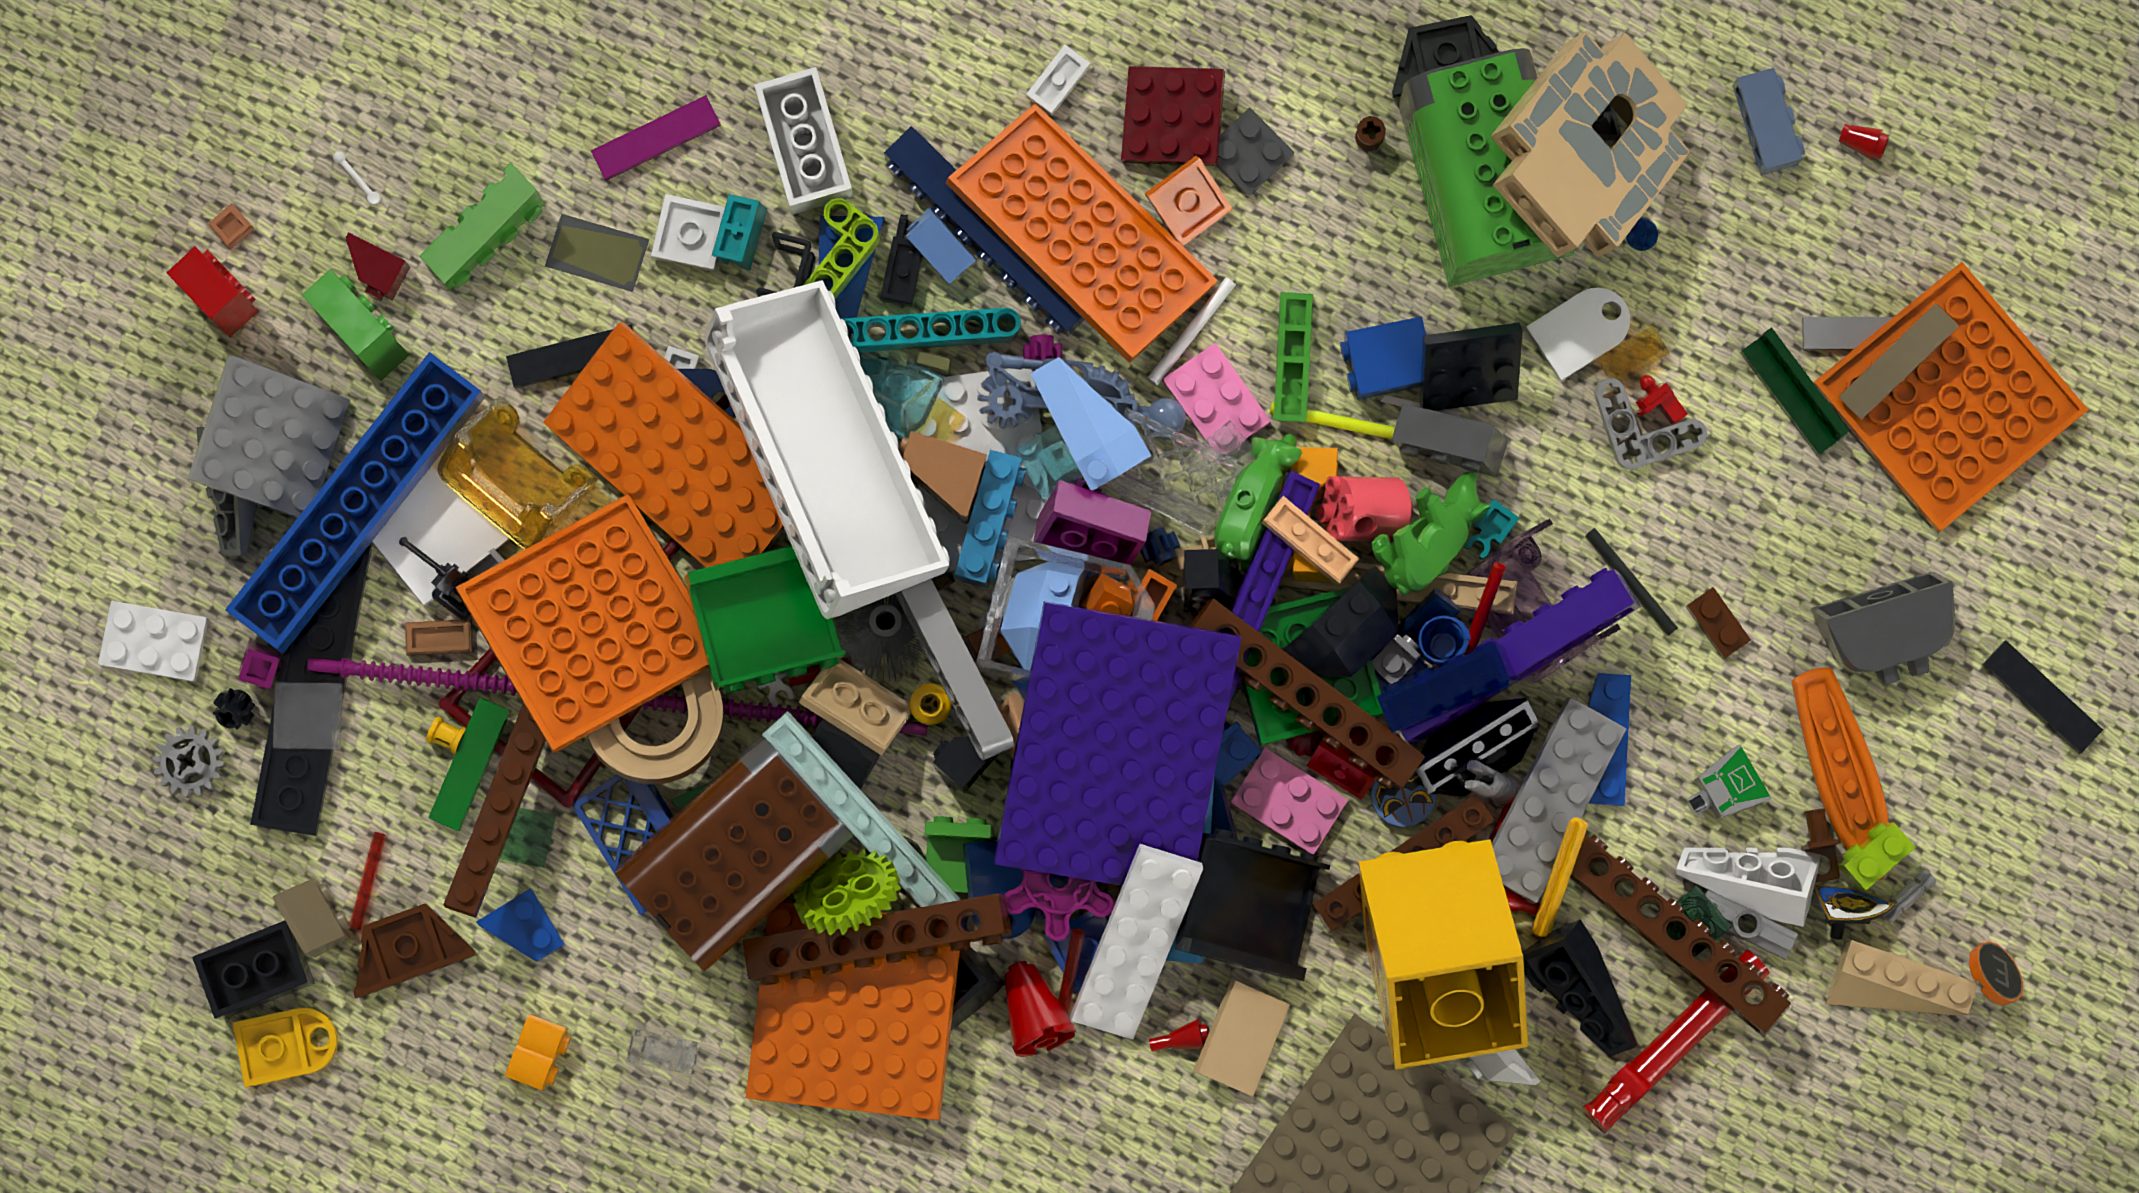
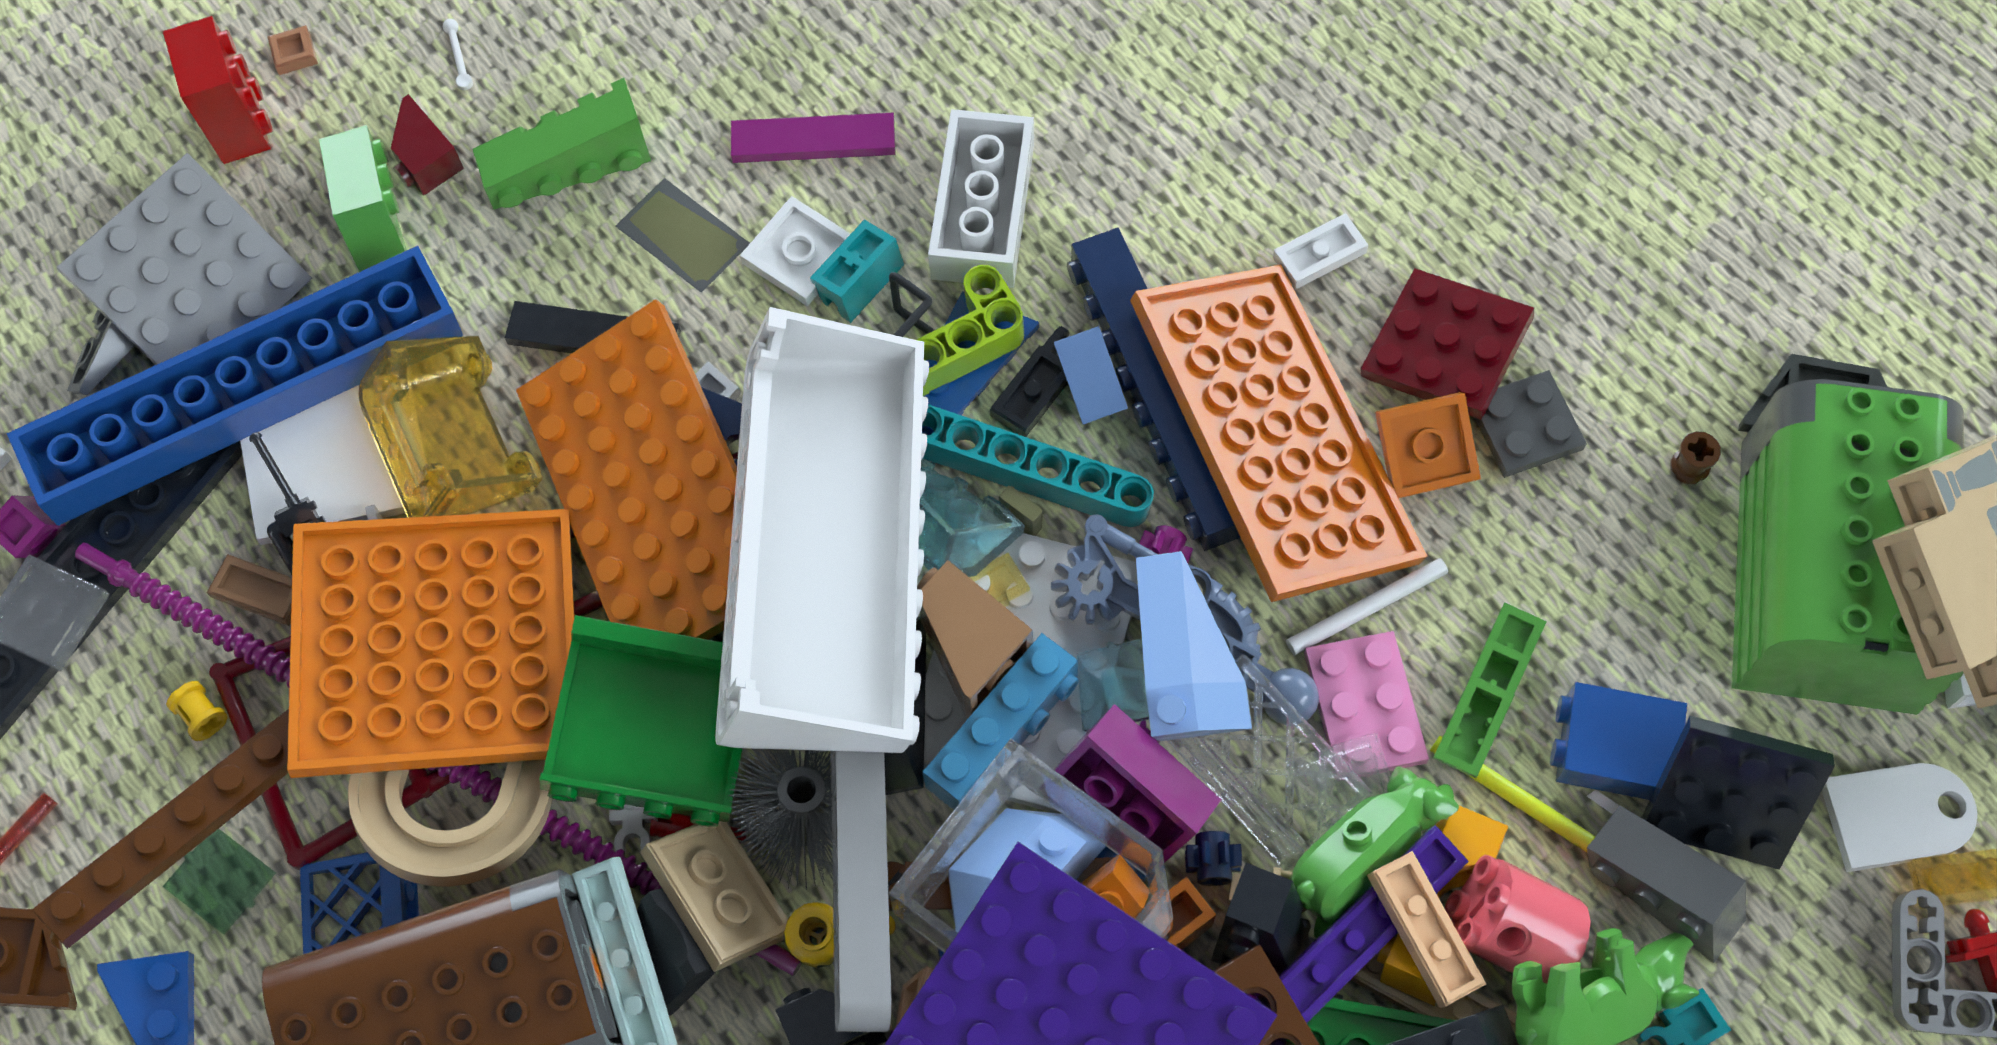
camera: 25 degrees right, 15 degrees down
(469, 764) = (208, 746): green tile -> none

